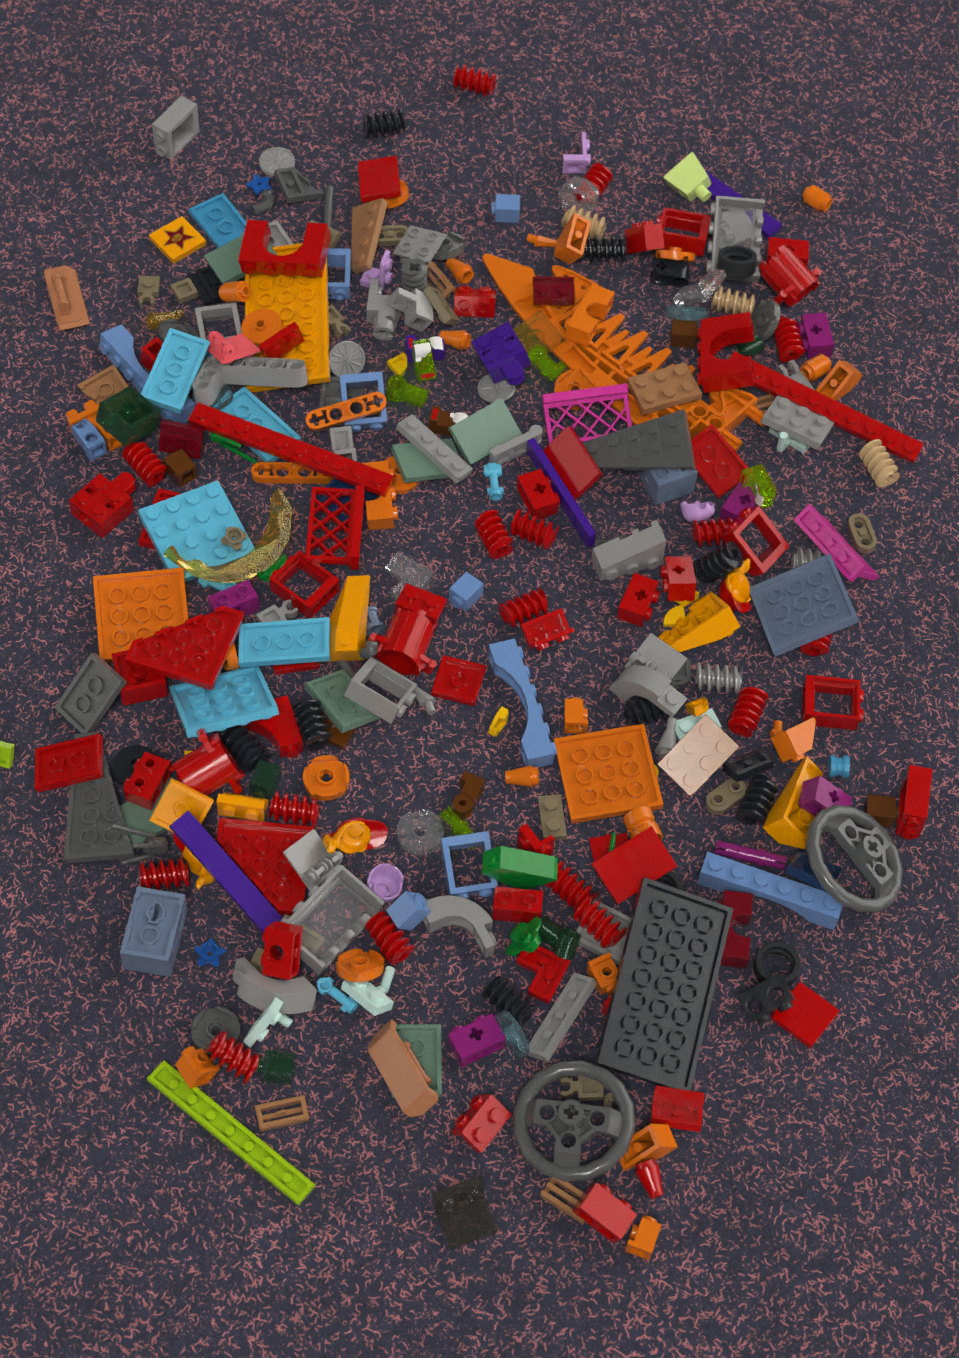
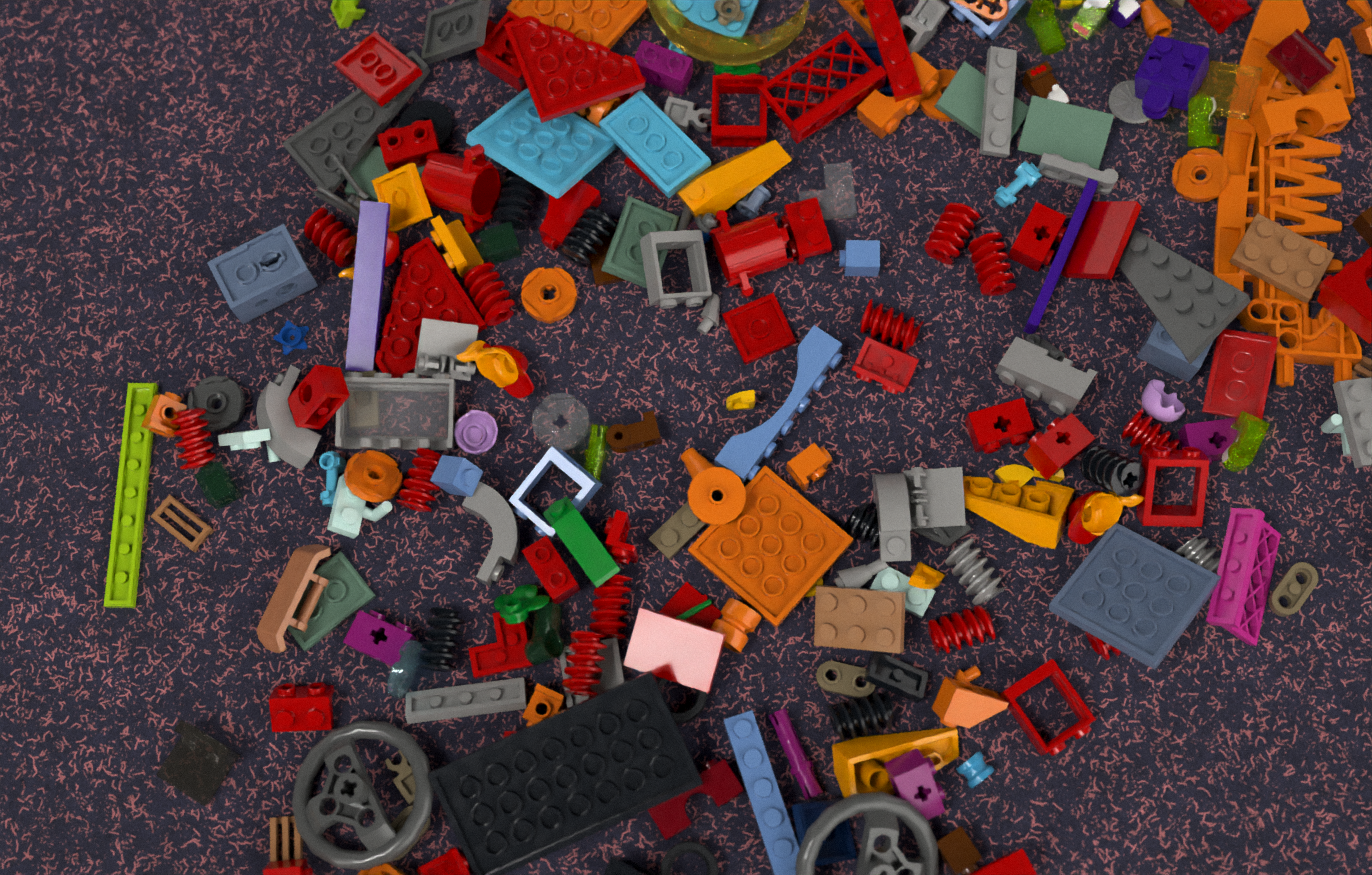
camera: 60 degrees right, 15 degrees up
(552, 785) = (701, 499): none -> orange plate
(582, 397) = (1195, 192): dark pink fence -> none

